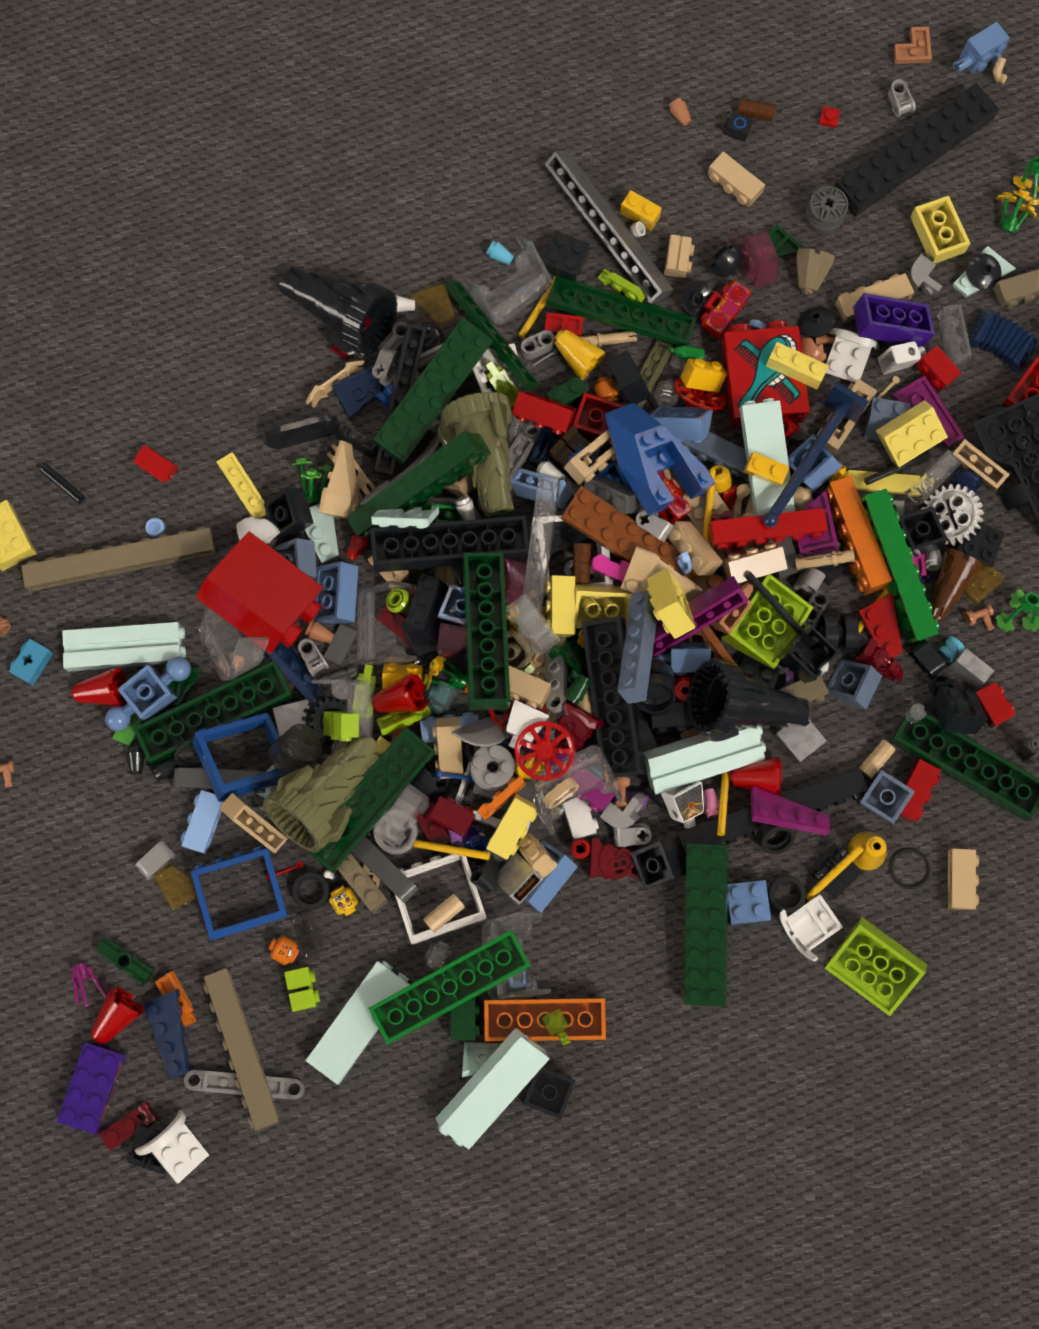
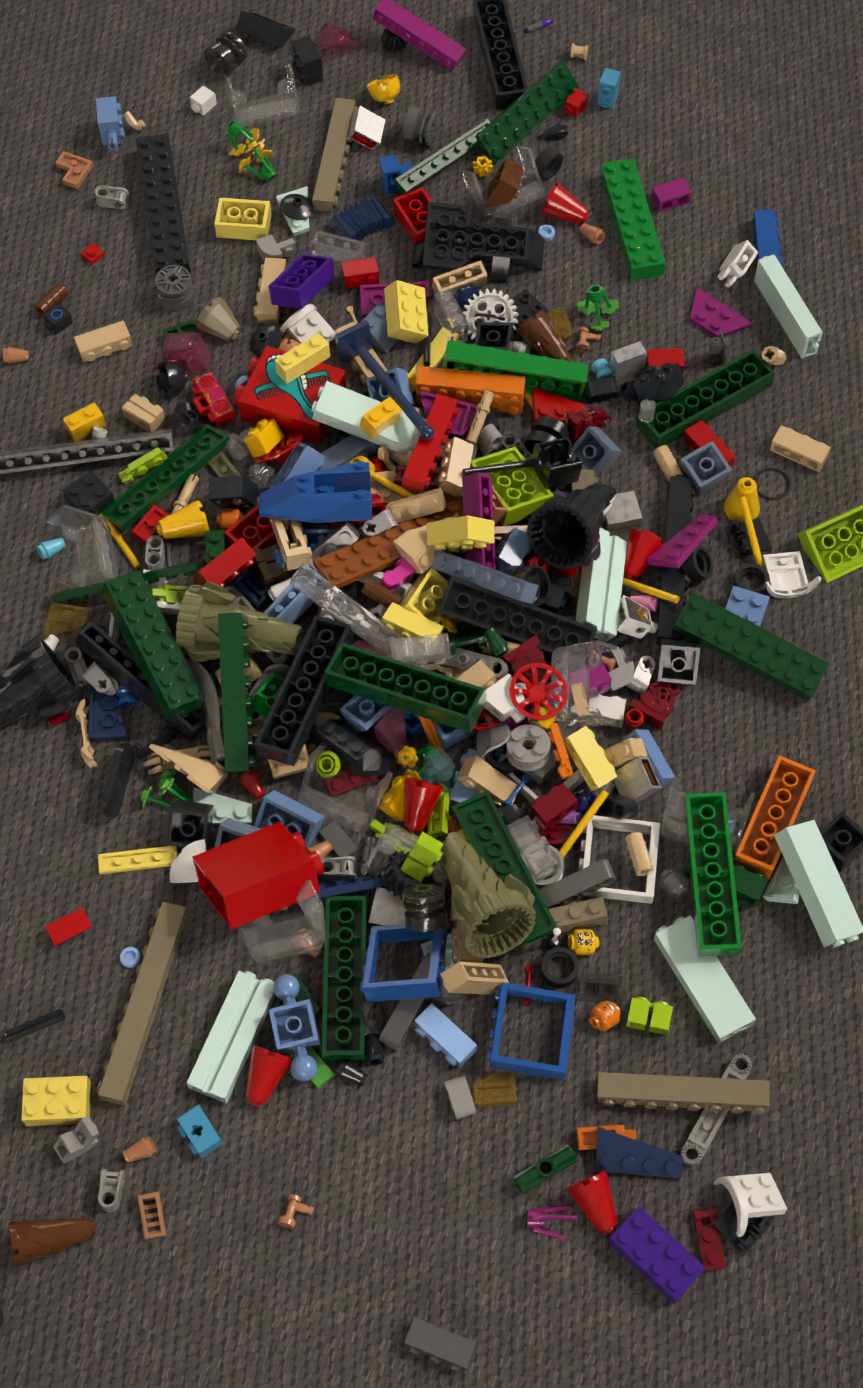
camera: 60 degrees left, 15 degrees down
(402, 519) = (264, 704): light aqua wing -> none
(465, 507) = (273, 669): white cone -> none
(556, 1024) = (785, 802): clear neon green plate -> none
(684, 563) = (425, 515): light blue tile -> none
(688, 352) = (236, 439): green piece -> none
(900, 357) = (334, 287): white torso -> none

